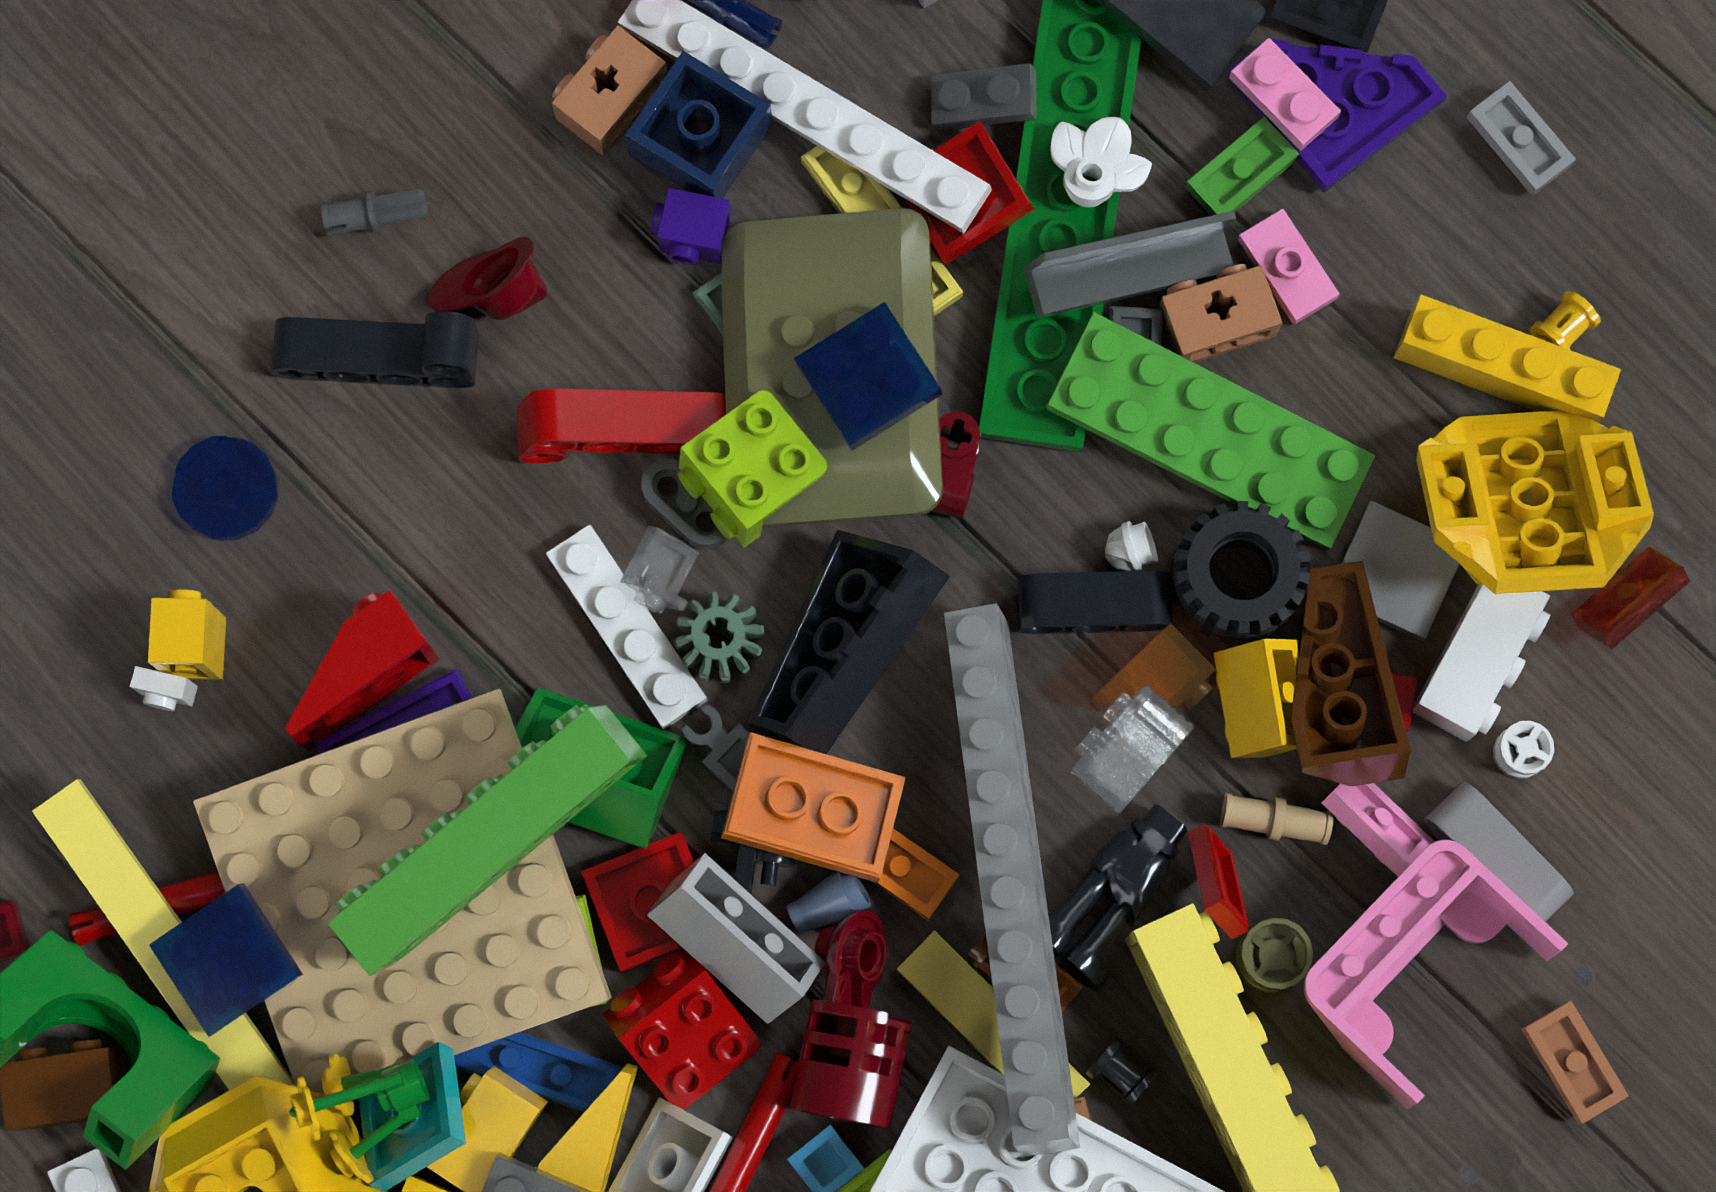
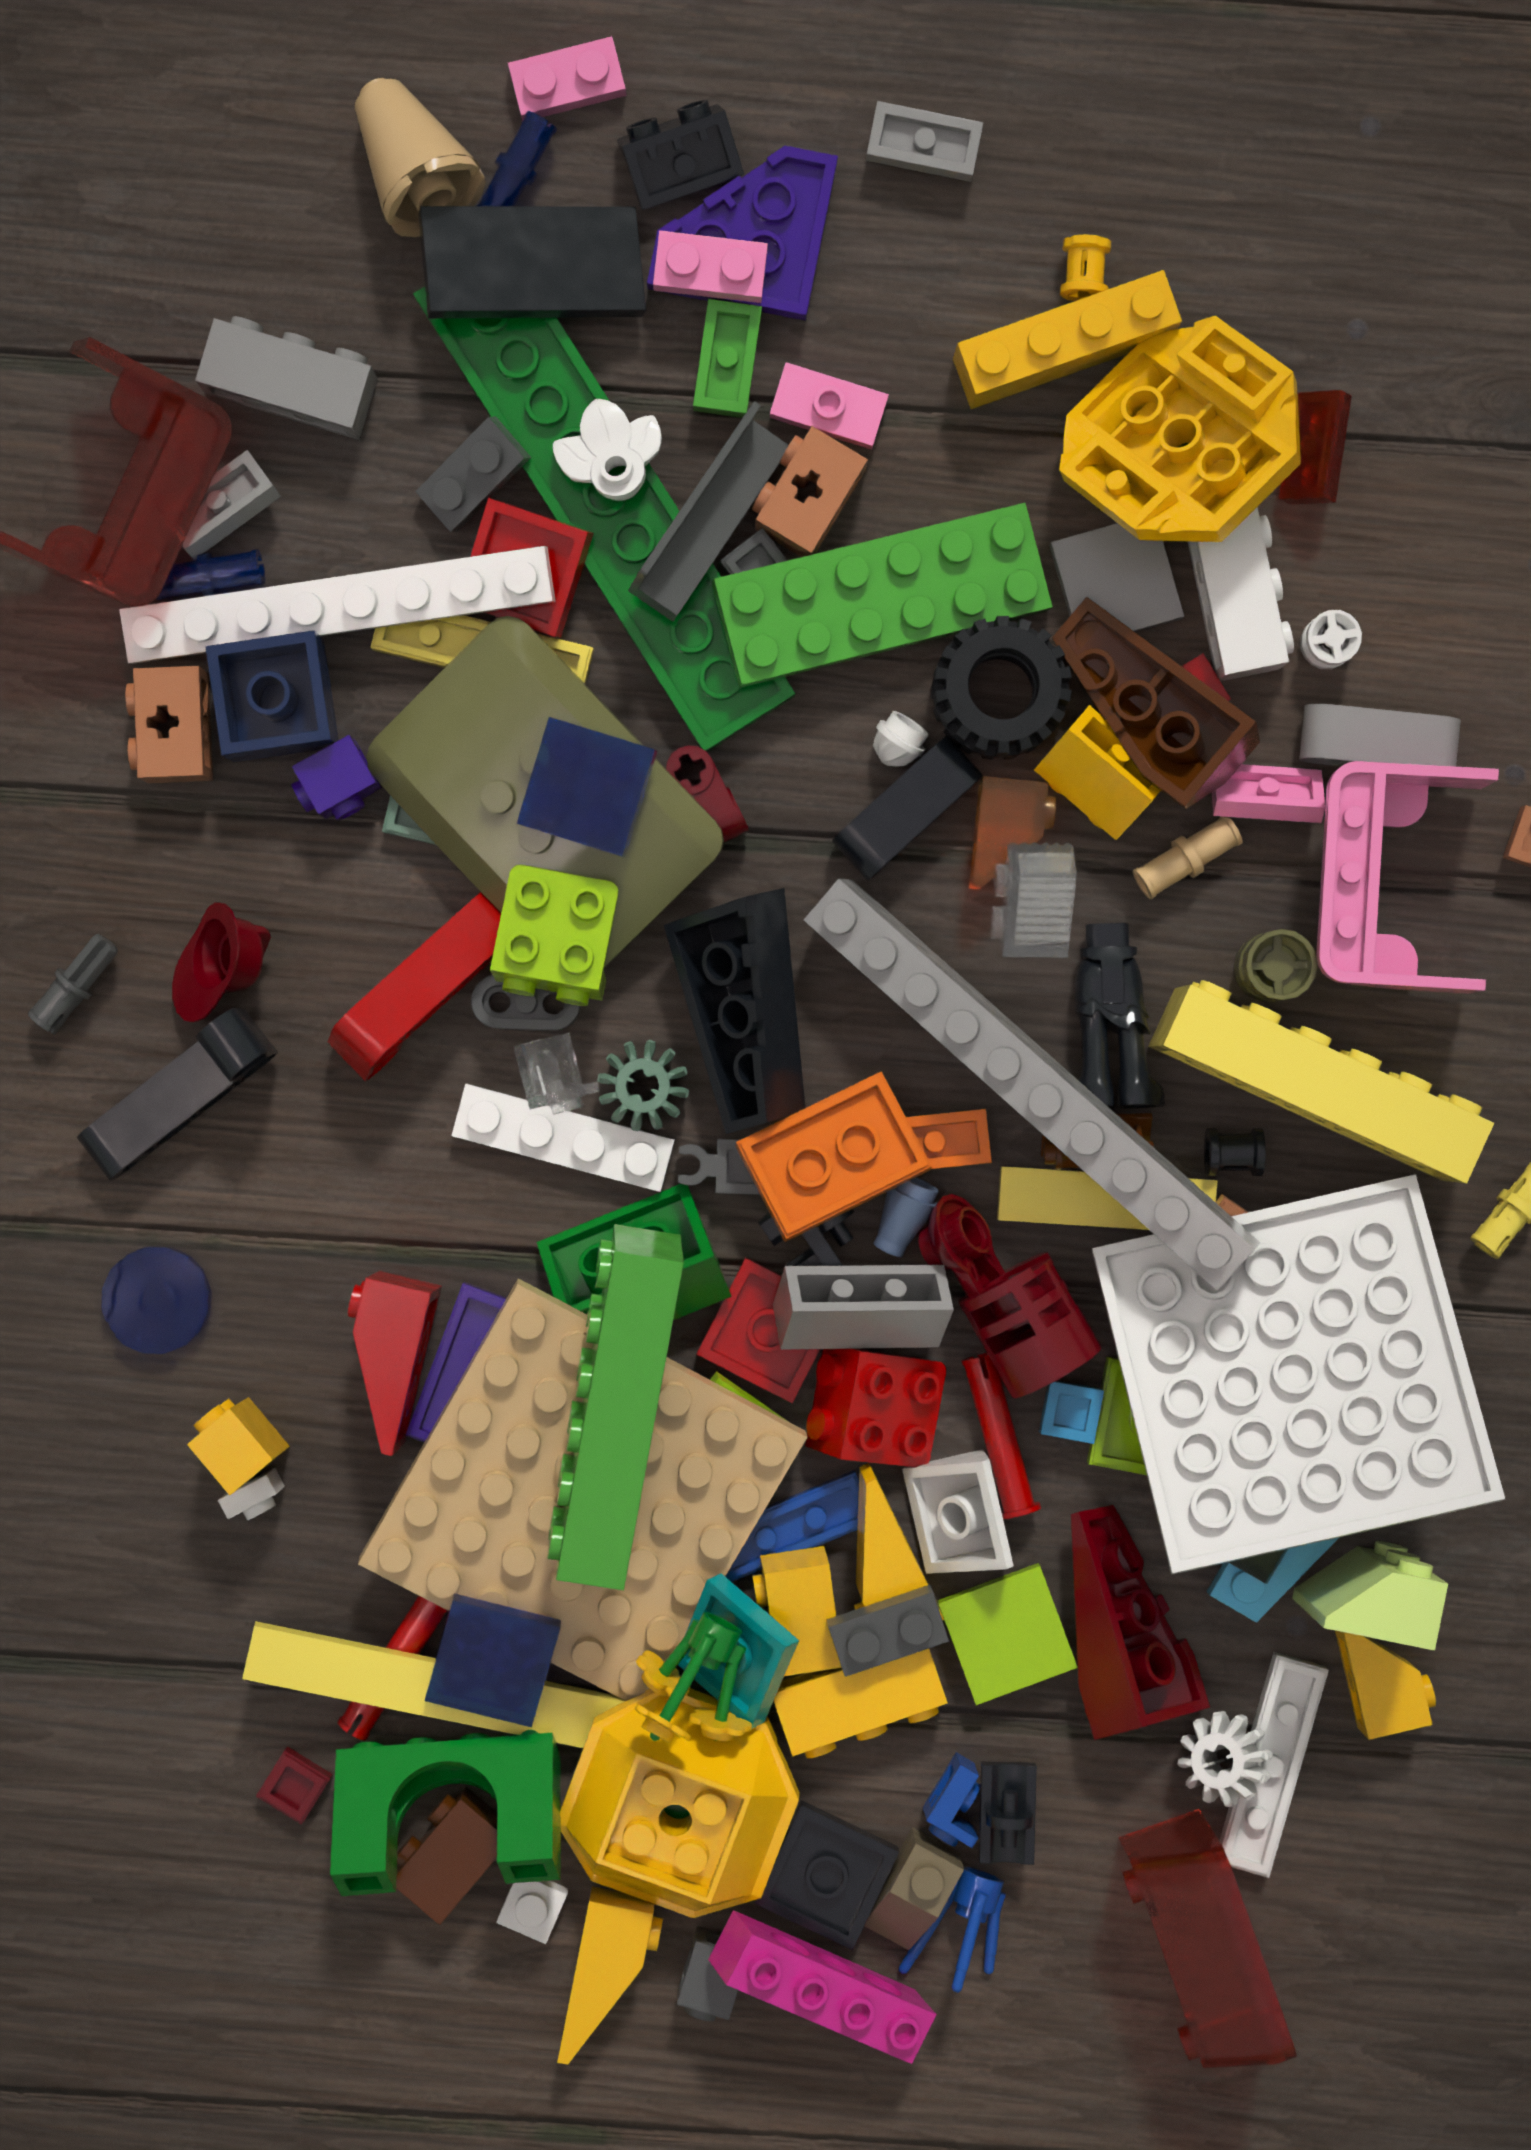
camera: 40 degrees left, 10 degrees up
(1218, 881) = (1188, 946): red tile -> none

